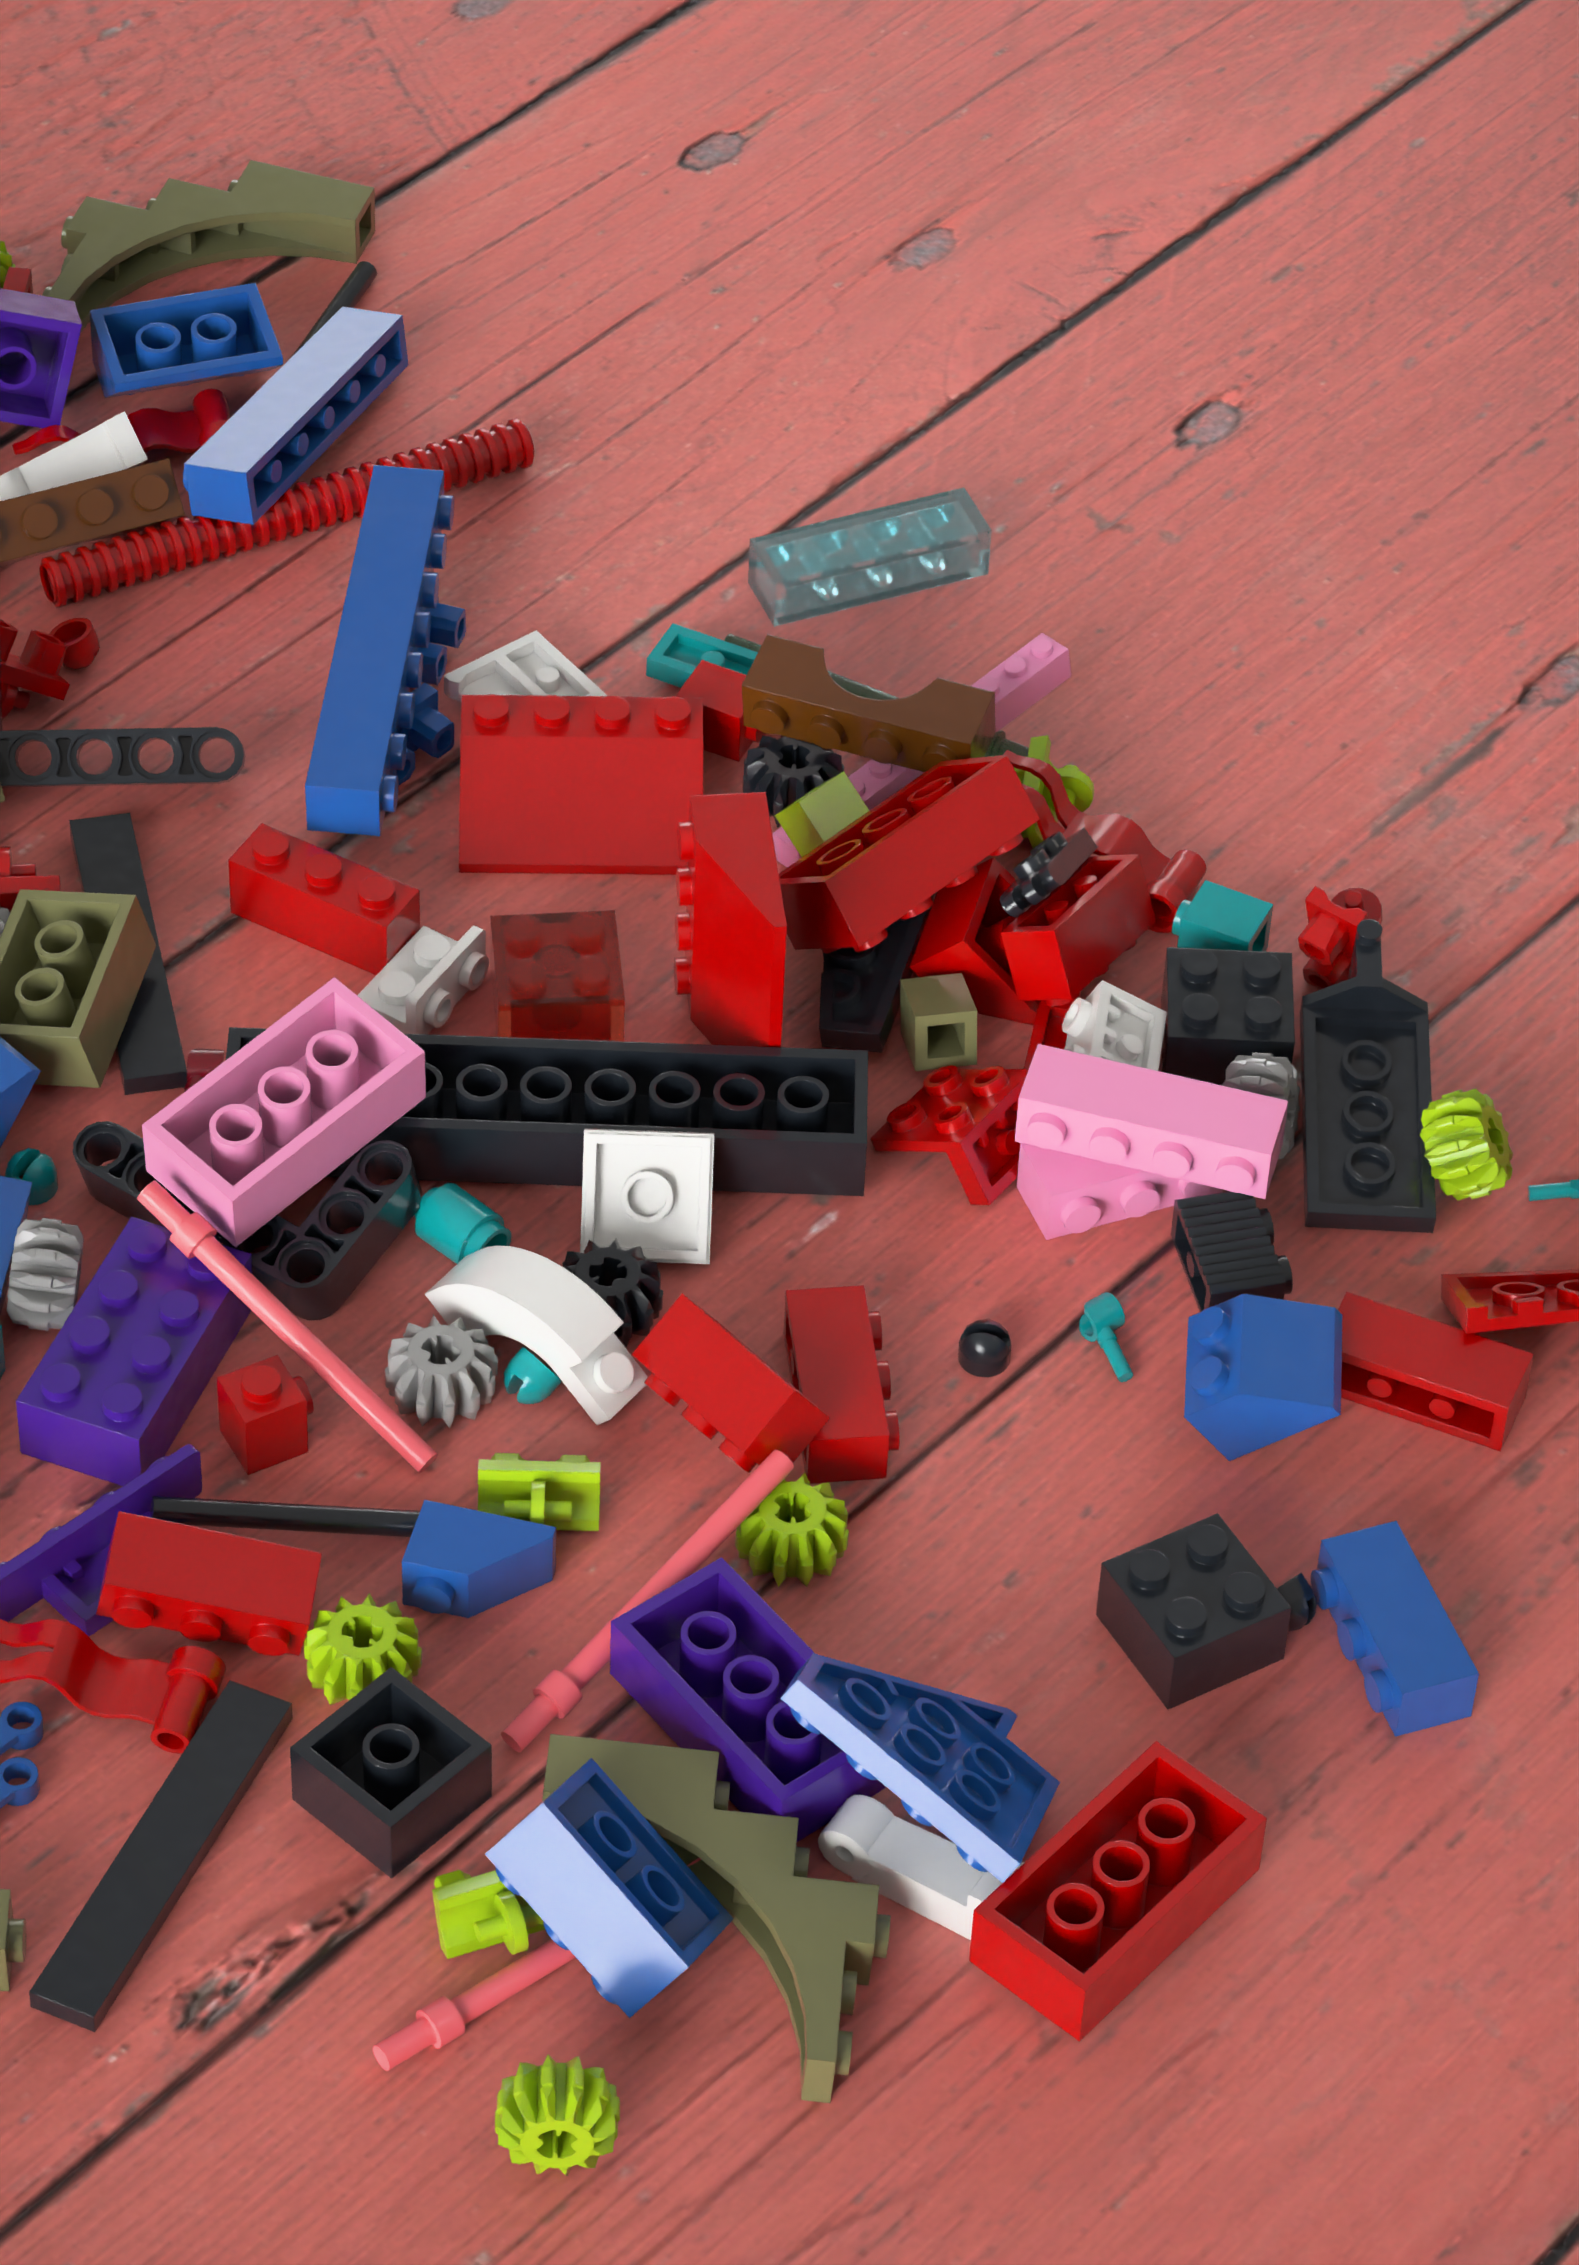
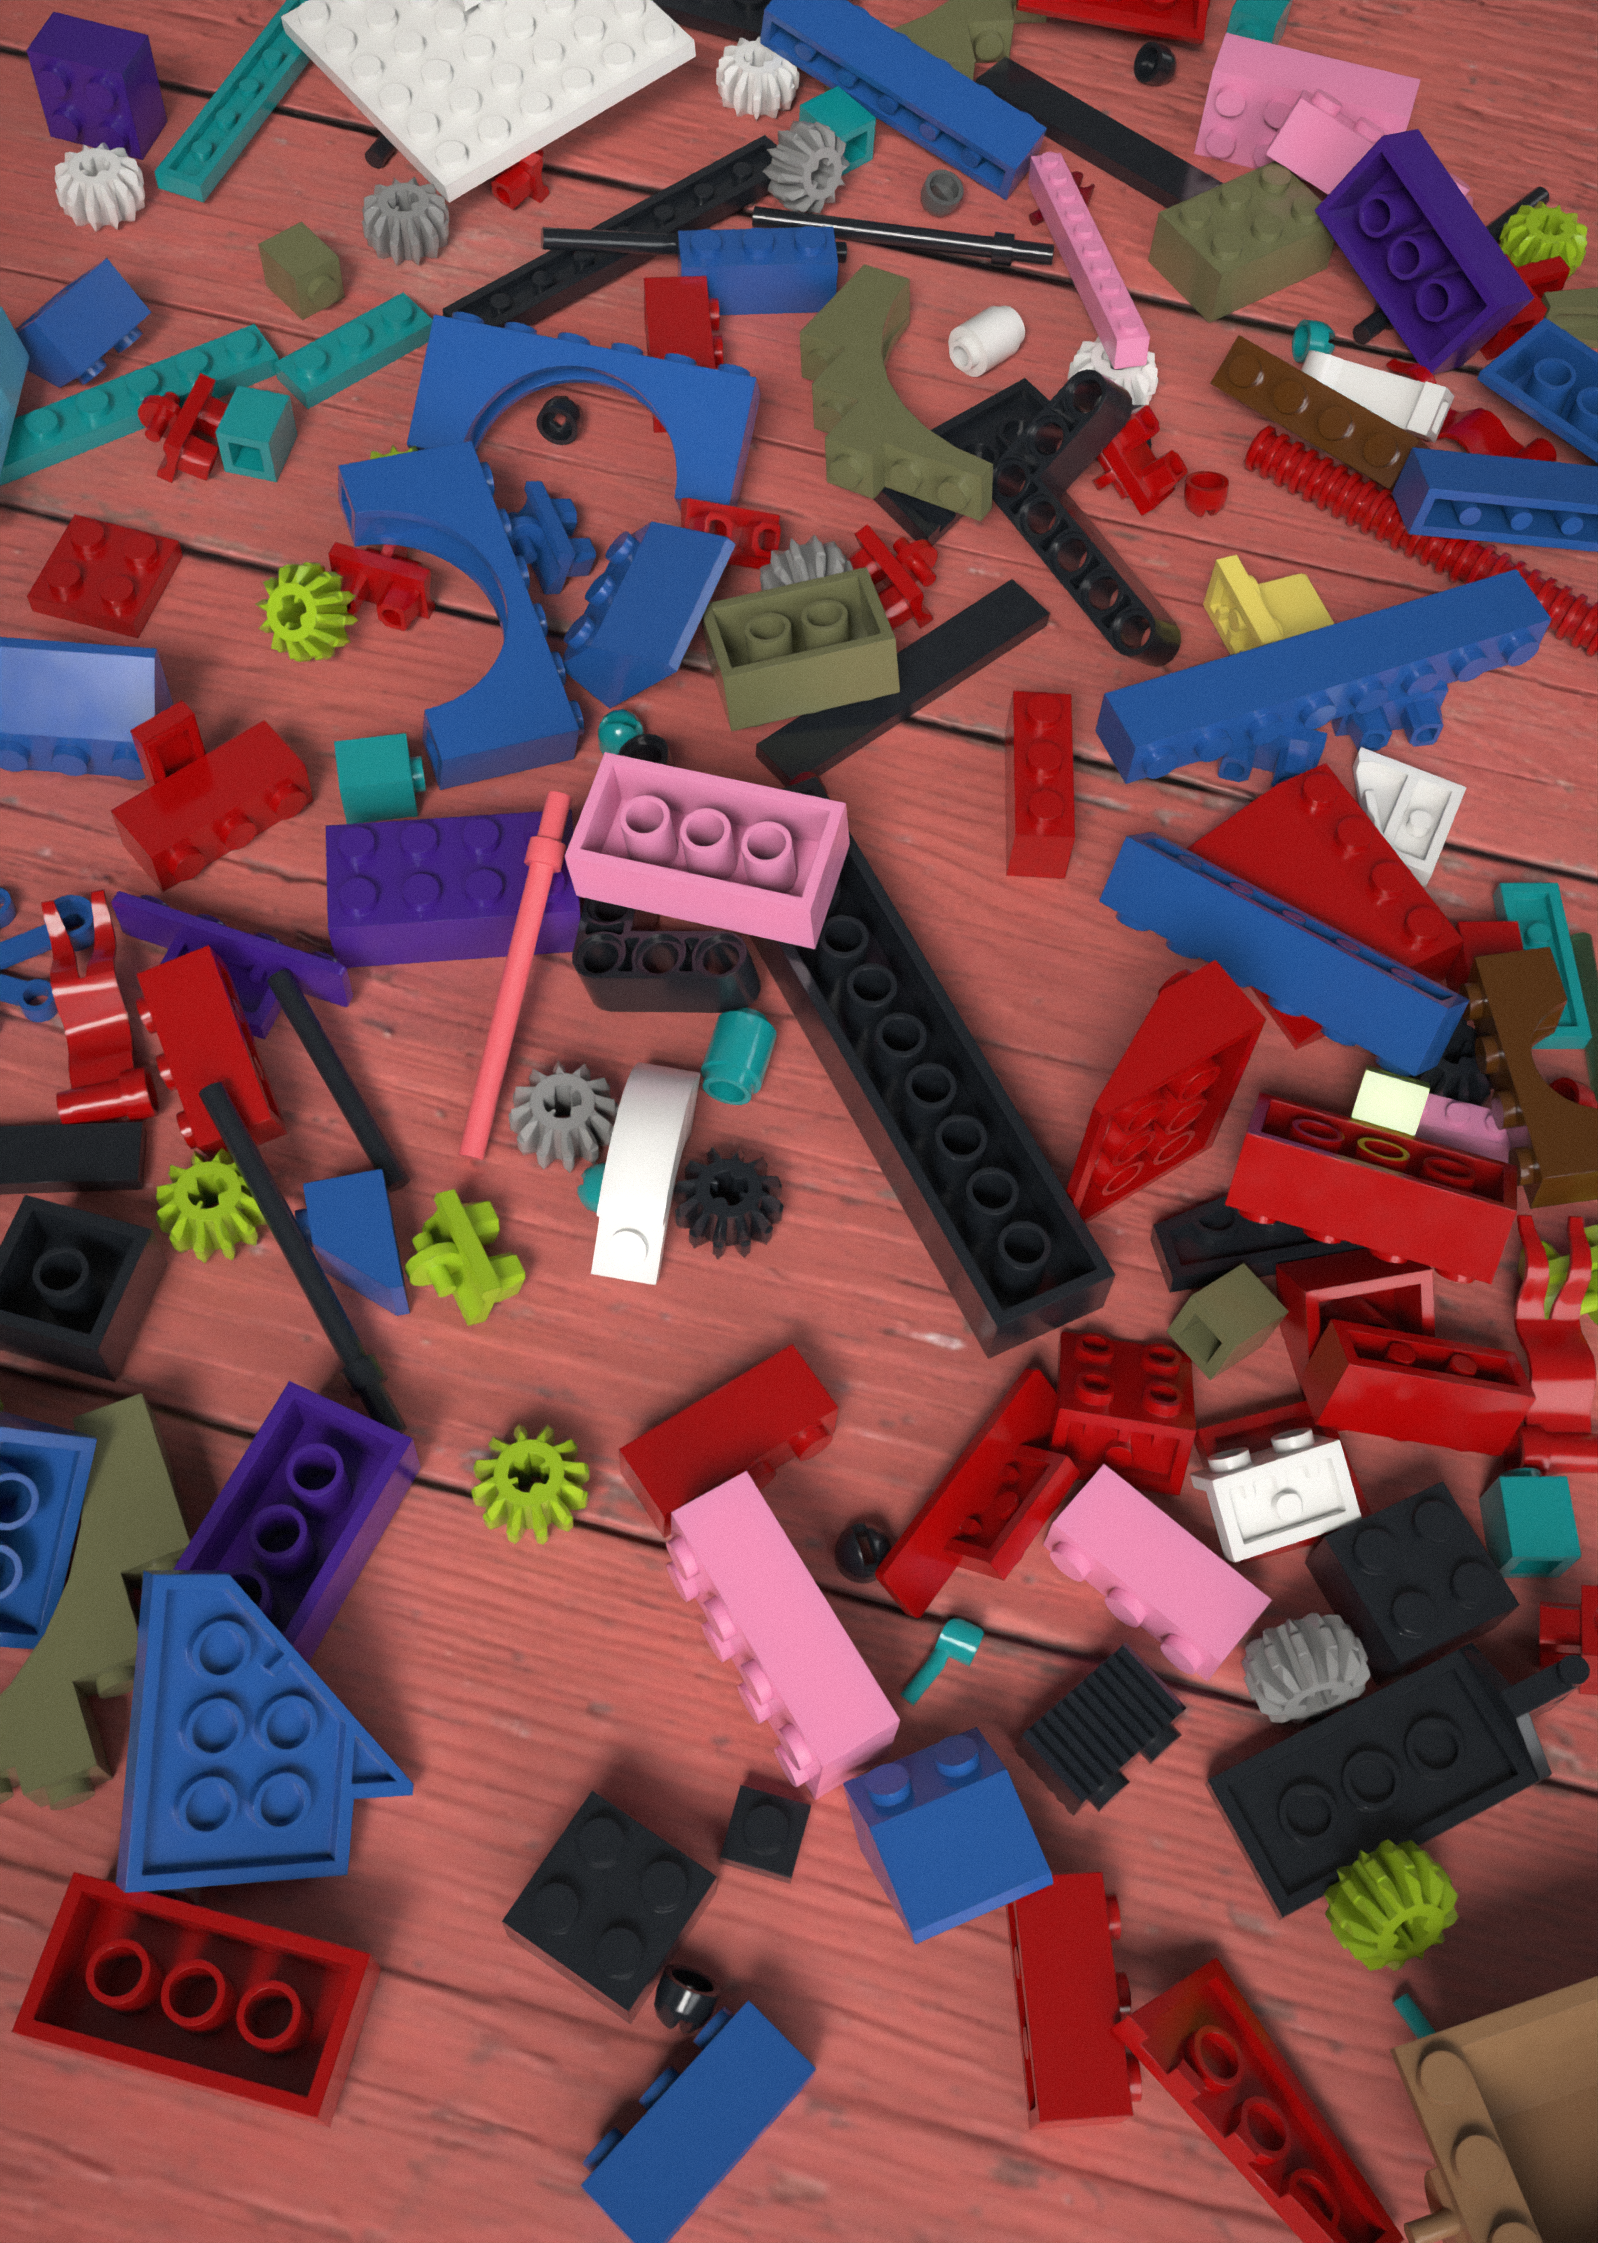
camera: 60 degrees right, 15 degrees up
(44, 1273) = (493, 780): light grey gear -> none
(262, 672) = (1261, 613): none -> light yellow bracket
(264, 1414) = (435, 1007): red brick -> none
(428, 979) = (1009, 900): white bracket -> none
(557, 976) = (1063, 993): clear red brick -> none
(561, 1689) = (251, 1380): coral bar -> none
(595, 1607) = (361, 1372): none -> black bar
(624, 814) = (1283, 953): none -> blue brick
(649, 1193) = (846, 1178): white tile -> none
(726, 1387) = (645, 1352): red brick -> none
(1003, 1237) = (986, 1502): none -> red bracket
(1040, 1402) = (780, 1636): none -> bright pink brick
(1046, 870) = (1449, 1324): black hinge -> none
(1151, 1121) = (1185, 1576): bright pink brick -> none
(1181, 1500) = (765, 1834): none -> black plate

